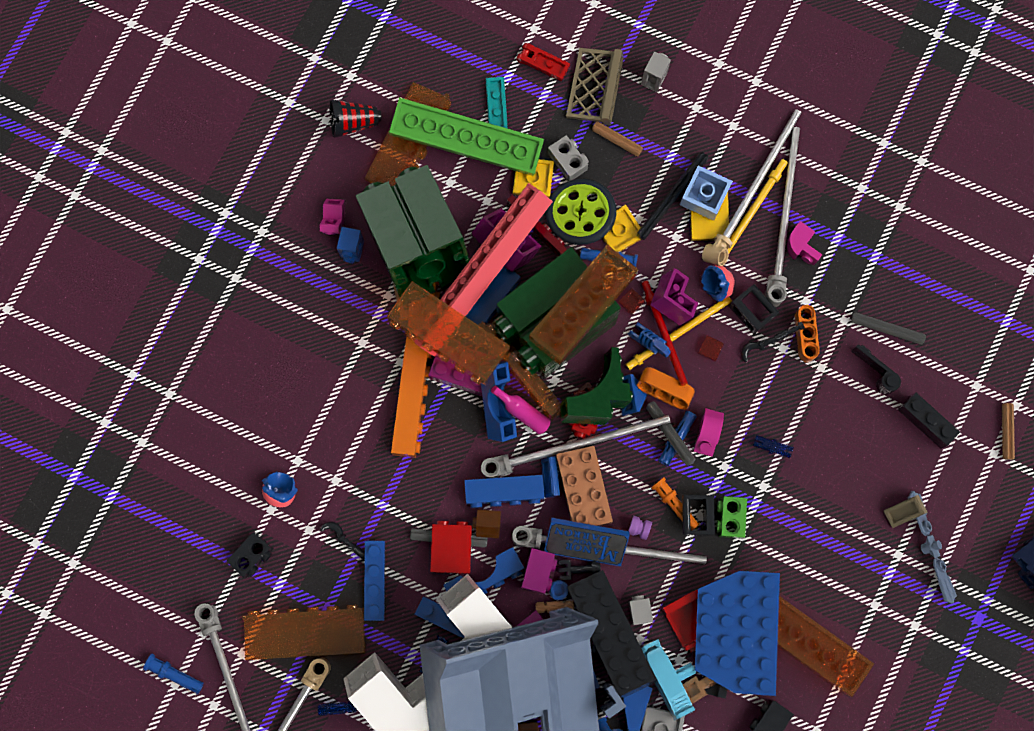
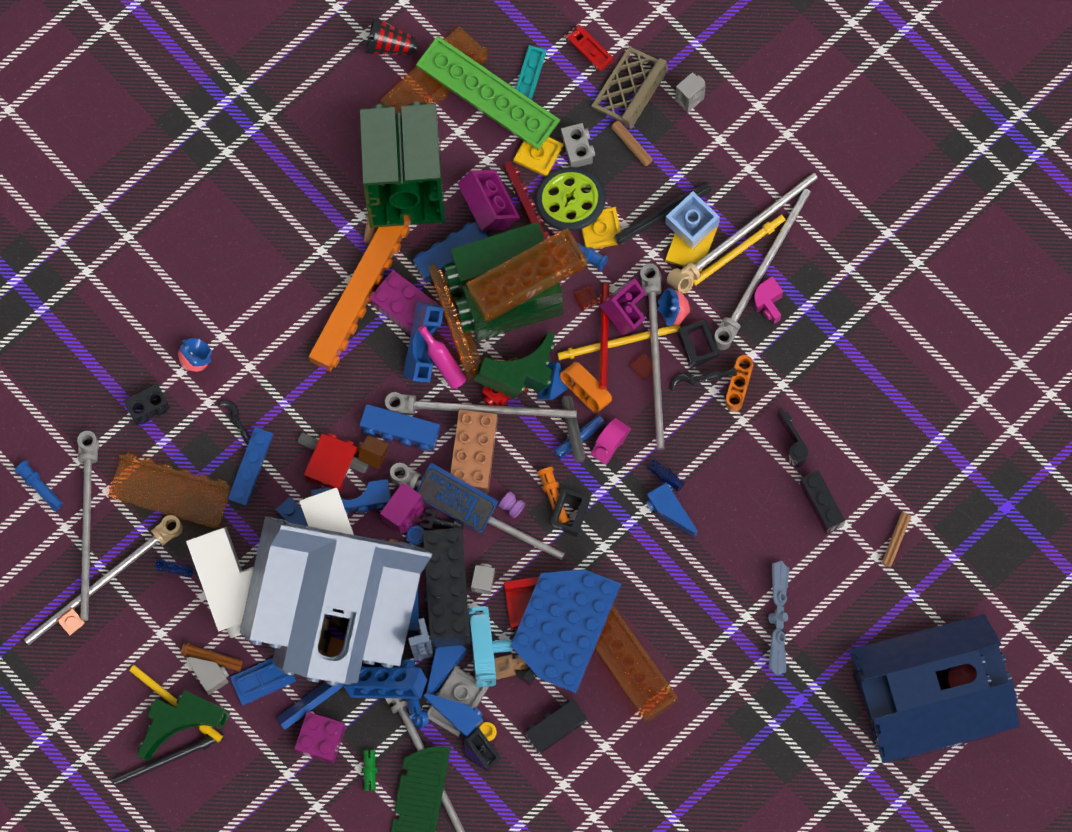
camera: 25 degrees right, 5 degrees down
(332, 216) = (337, 125): dark pink brick -> none
(350, 244) = (342, 156): blue brick -> none
(447, 333) = (397, 262): clear orange bracket -> none
(495, 251) = (451, 217): coral brick -> none
(550, 477) = (447, 430): blue tile -> none
(650, 340) = (587, 338): blue hinge -> none
(691, 270) = (652, 287): none -> flat silver piece
(737, 518) = (606, 527): bright green brick -> none
(787, 476) = (669, 508): none -> blue slope
(888, 328) = (820, 405): dark grey axle -> none
(905, 511) = (765, 575): dark tan tile -> none

